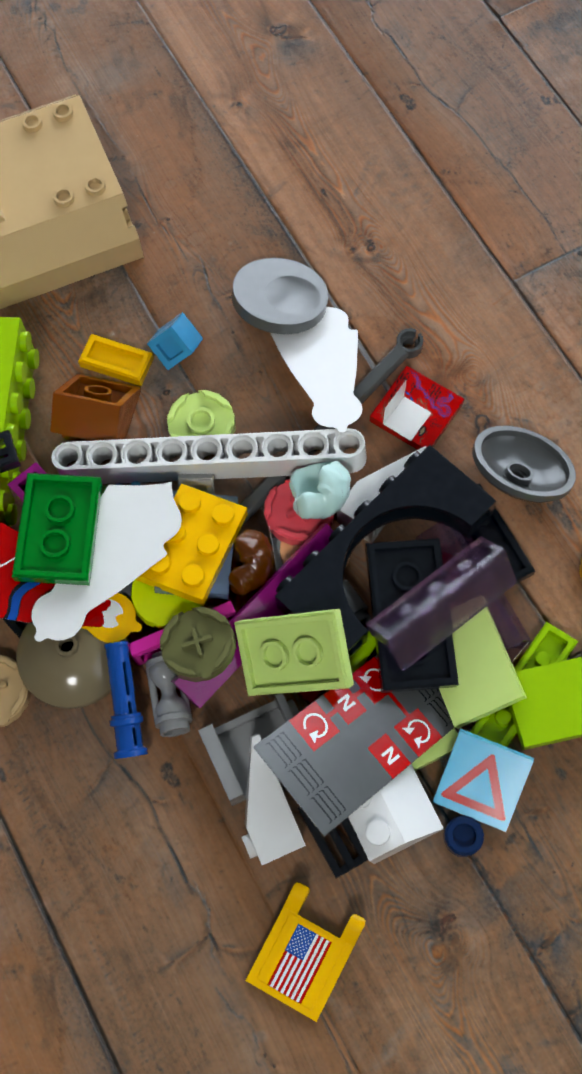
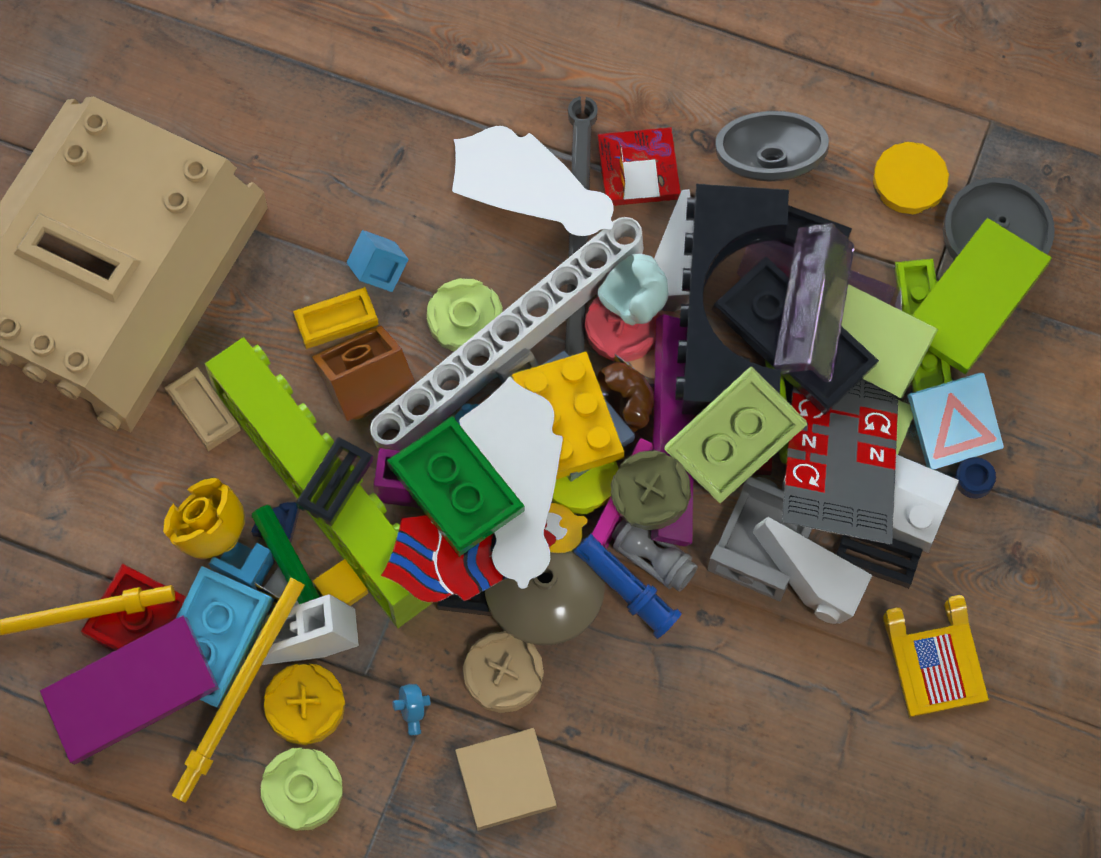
camera: 45 degrees left, 0 degrees up
(279, 295) = (434, 152): piece -> none

